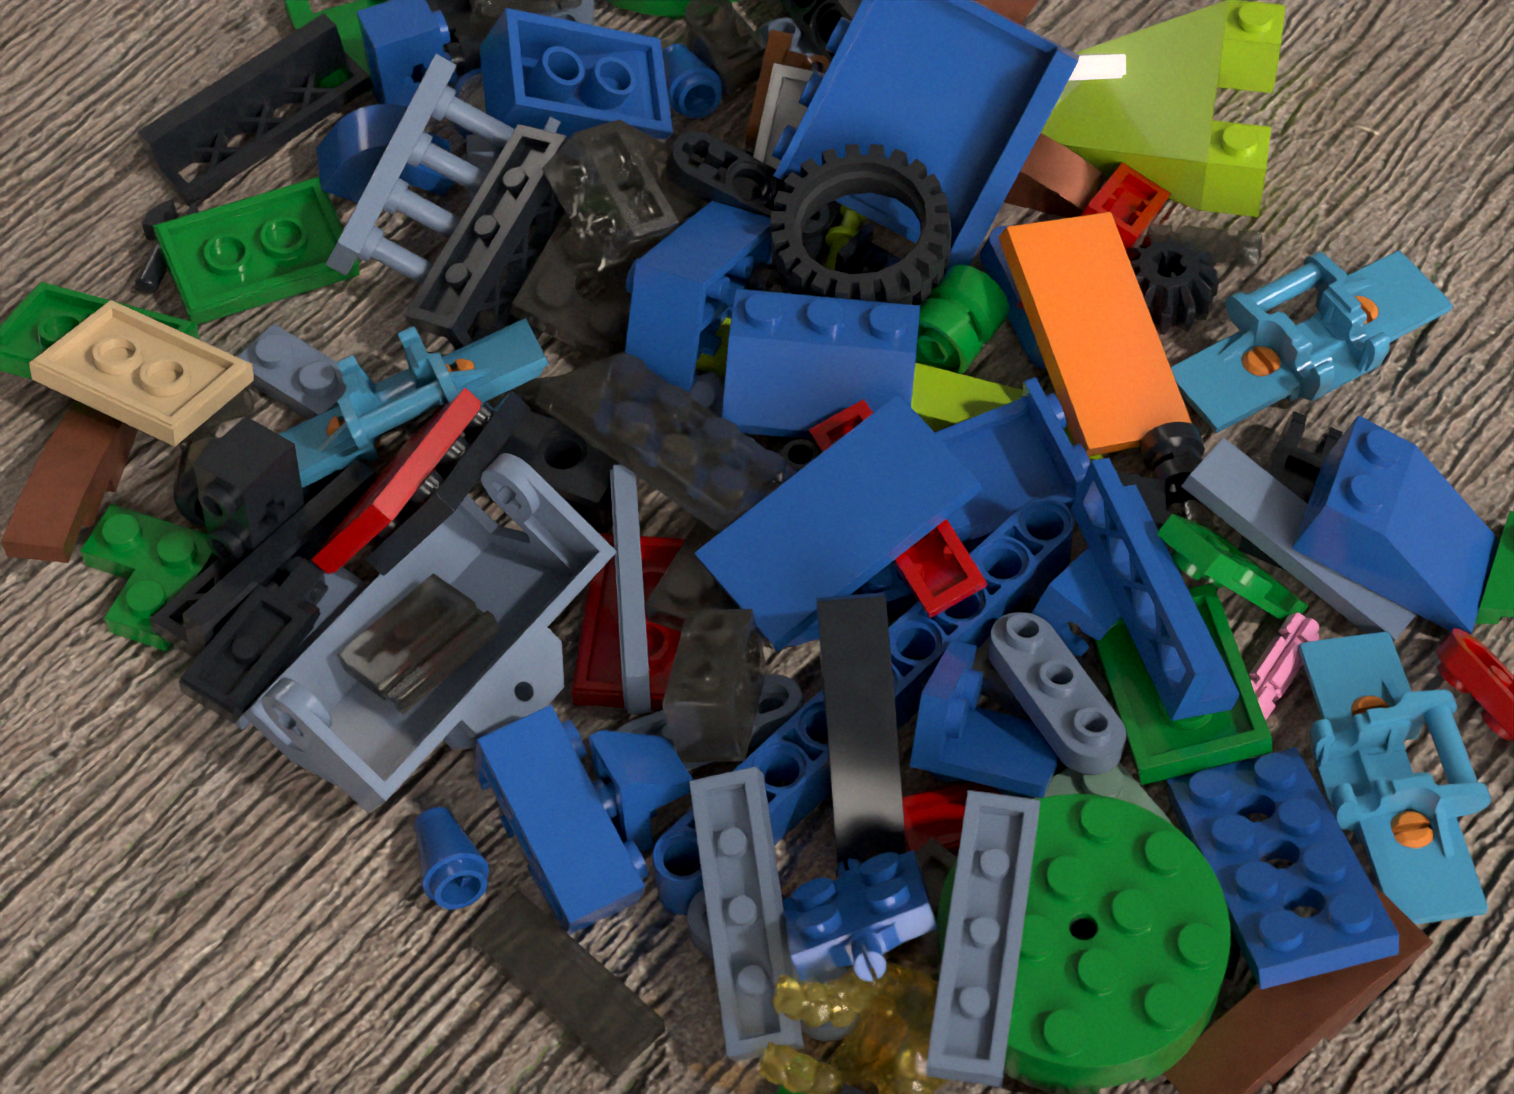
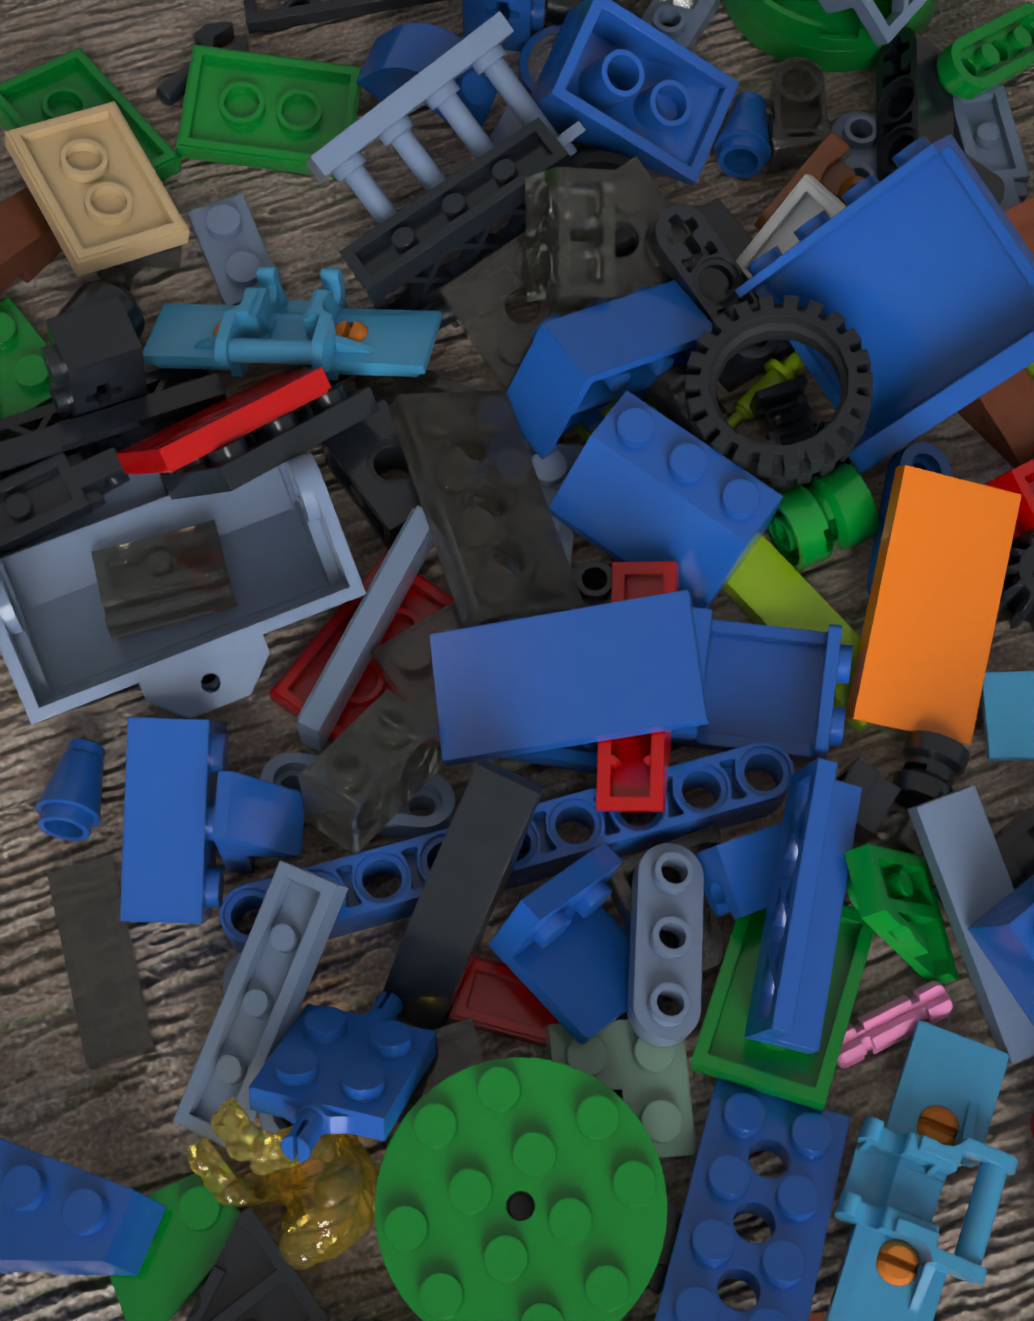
camera: 25 degrees right, 15 degrees up
(983, 939) = (414, 1176): sand blue plate -> none

